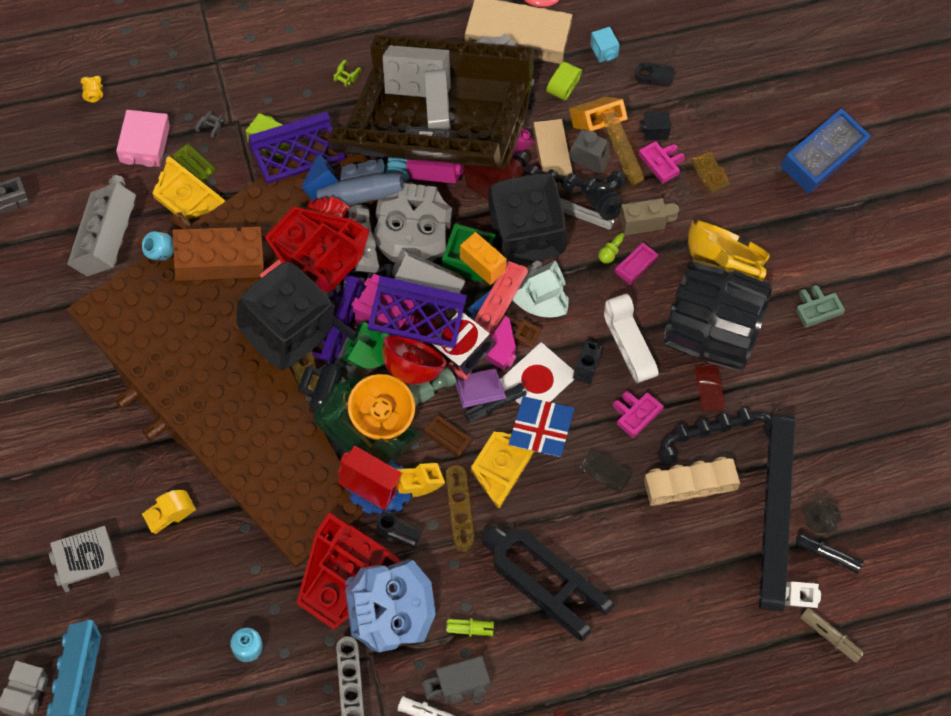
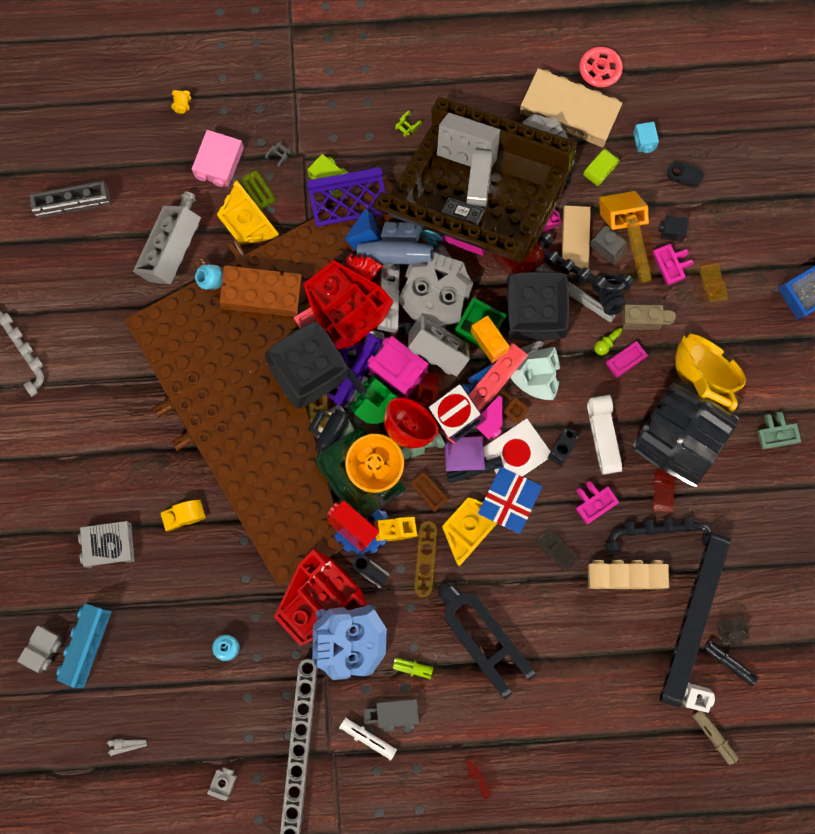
camera: 15 degrees right, 15 degrees up
(423, 295) = (428, 367): dark purple fence -> none

